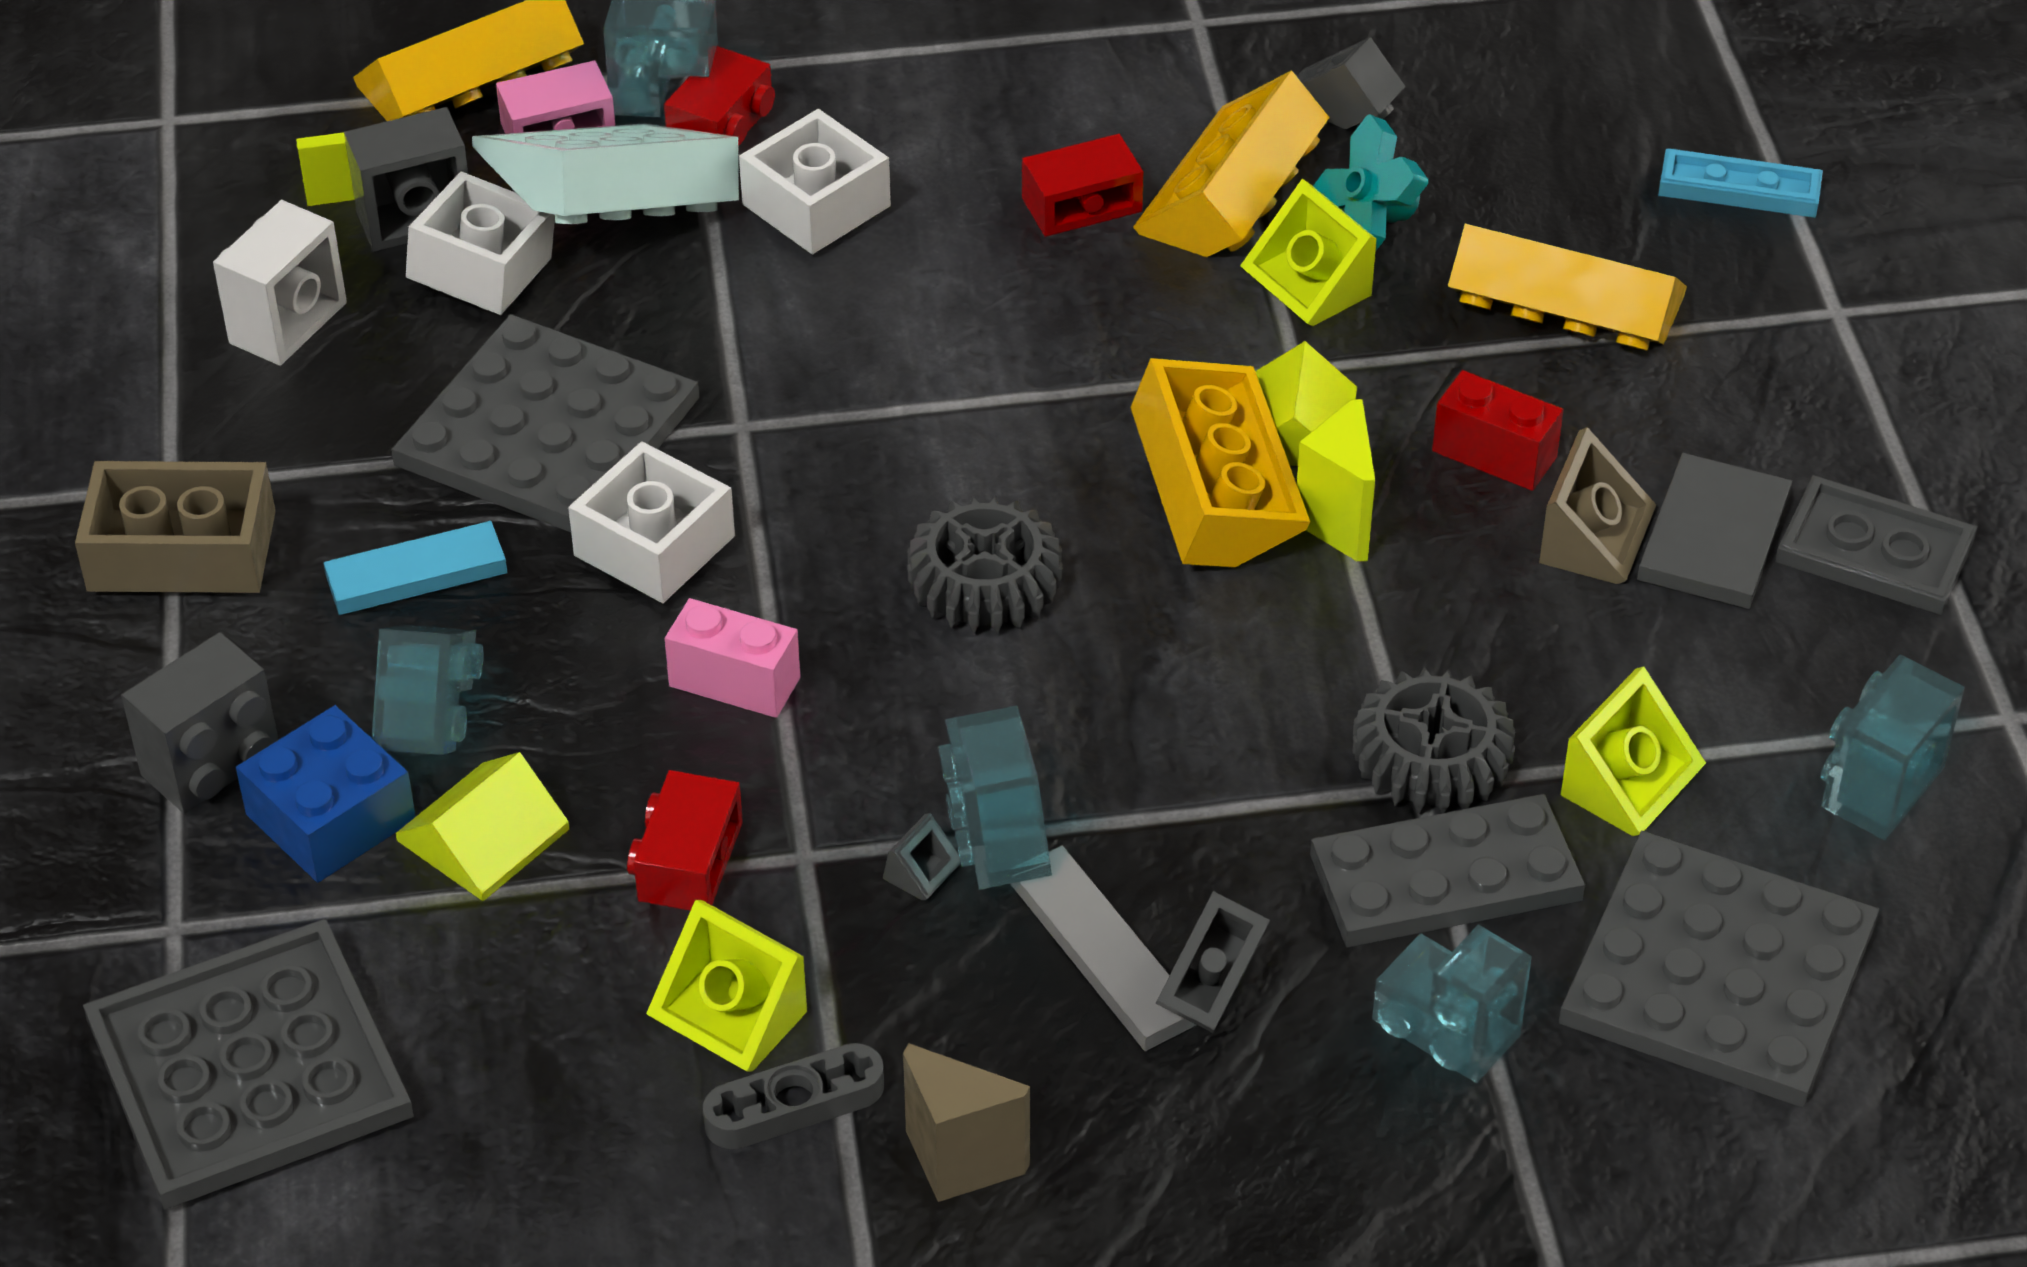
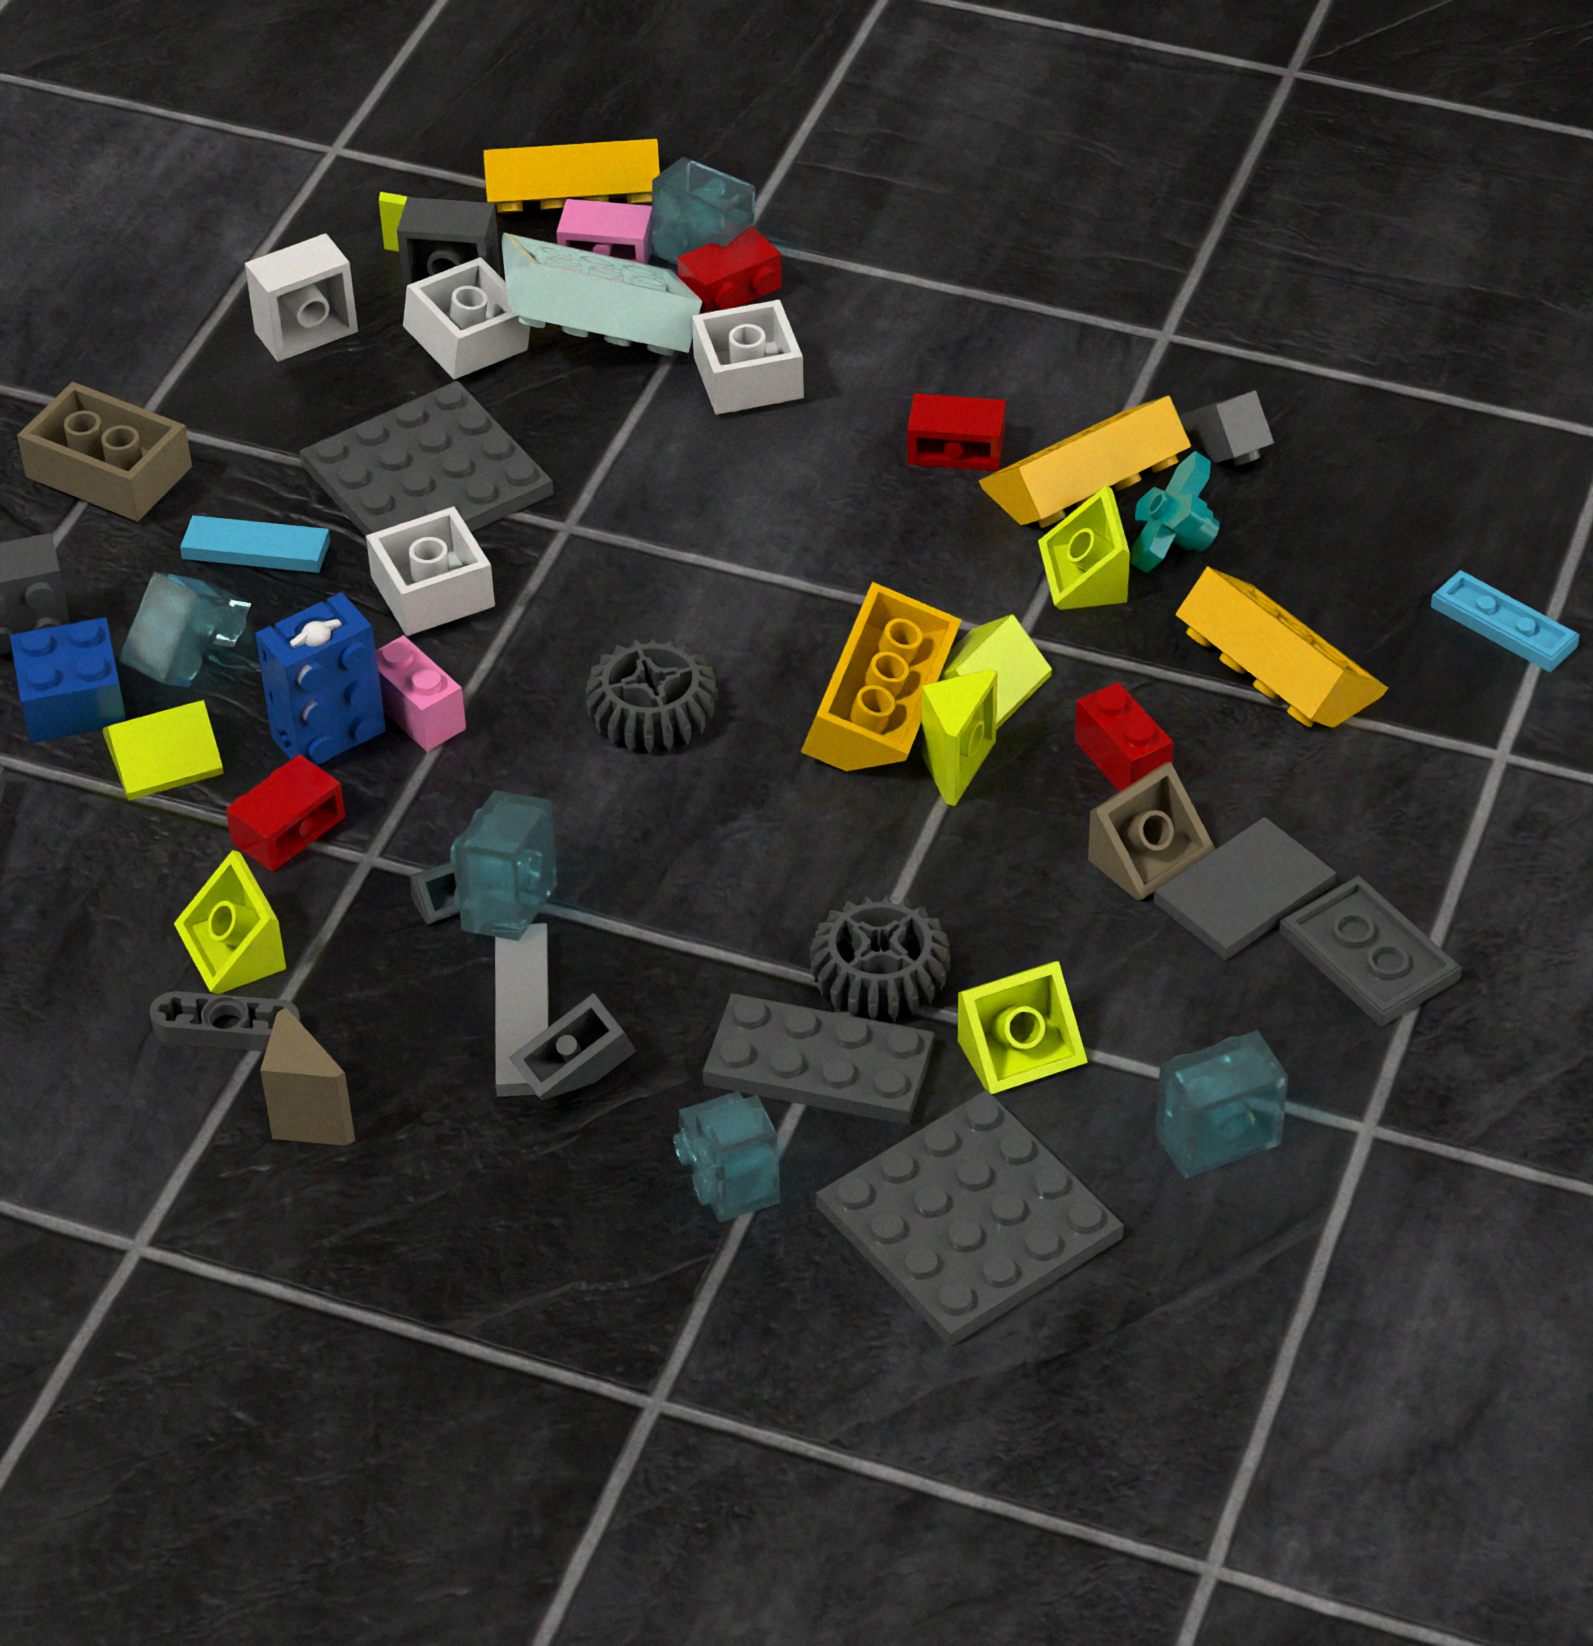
camera: 30 degrees right, 0 degrees up
(648, 680) = (321, 680): none -> blue piece

